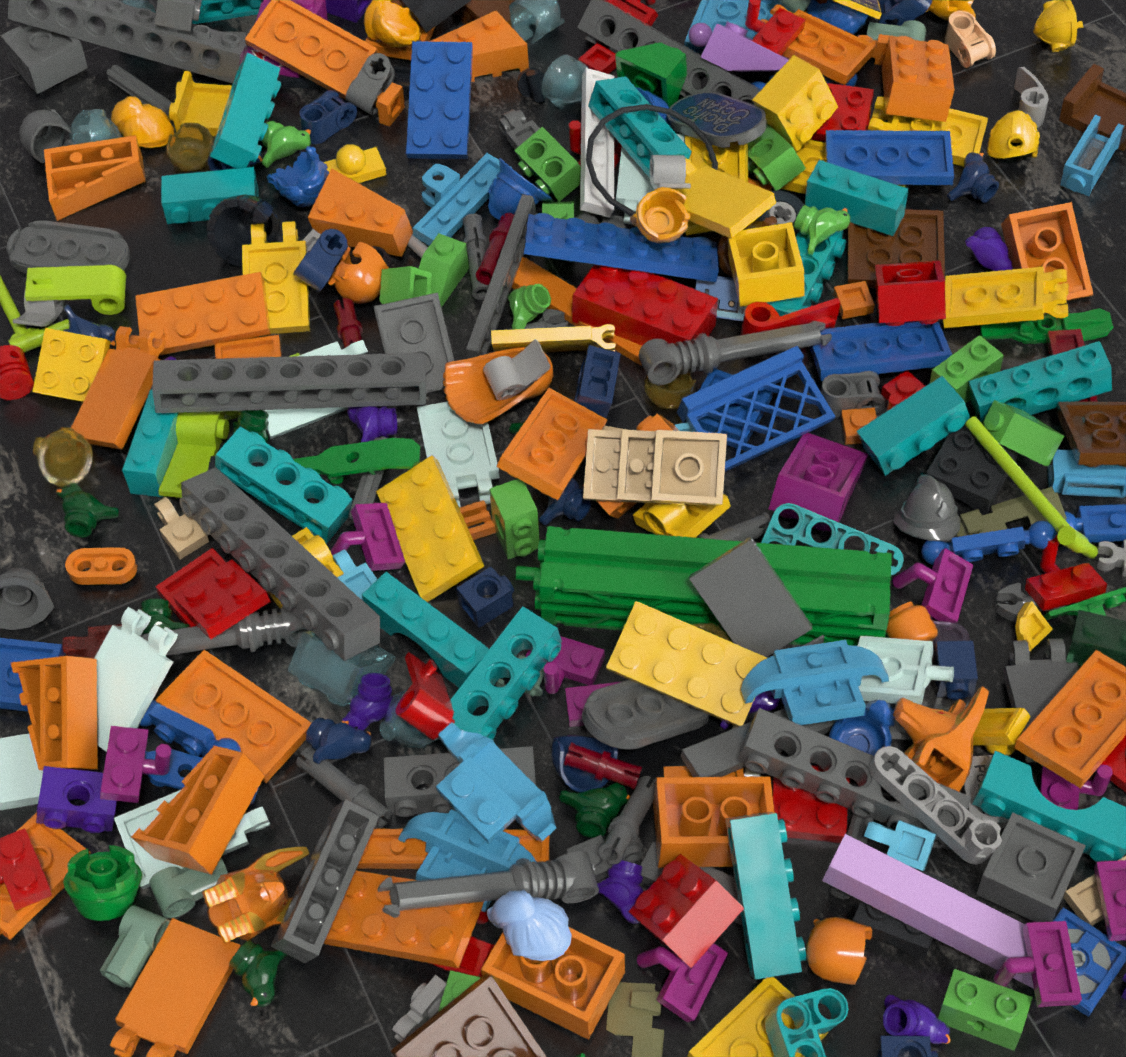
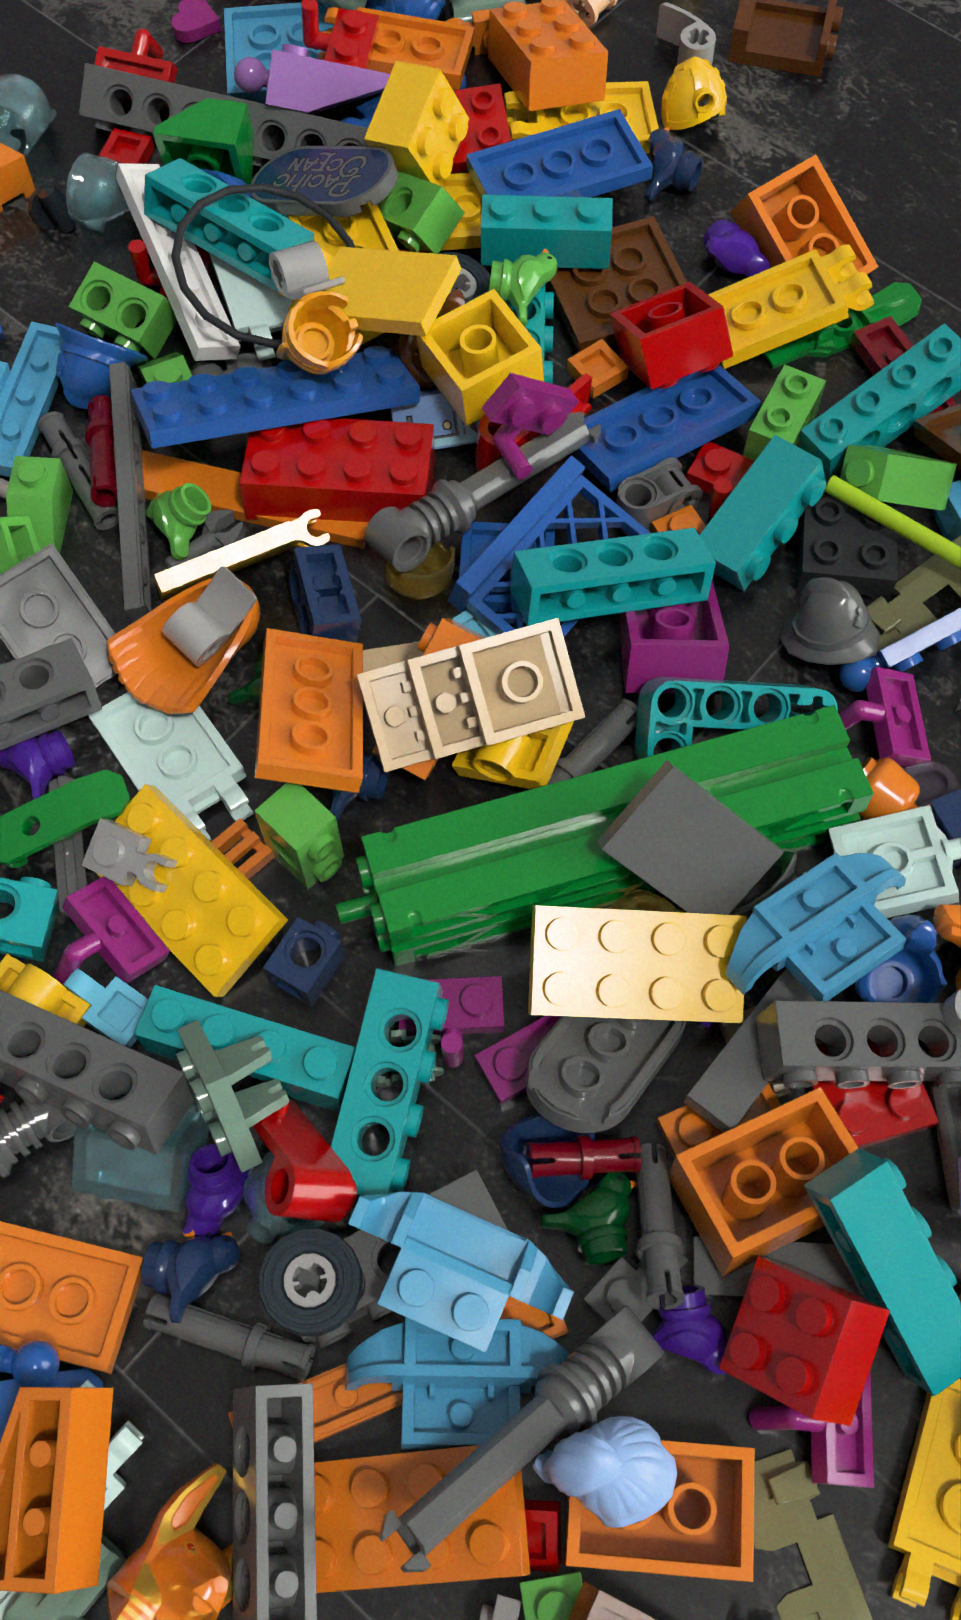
camera: 25 degrees left, 10 degrees up
(392, 627) = (223, 1111): none -> sand green plate
(400, 493) = (122, 856): none -> light grey plate
(410, 750) = (316, 1312): none -> black bush
(516, 128) = (51, 273): dark grey plate -> none
(776, 302) = (529, 406): none -> magenta plate
(789, 429) = (611, 576): none -> teal brick
(1090, 158) = (794, 96): dark azure window -> none

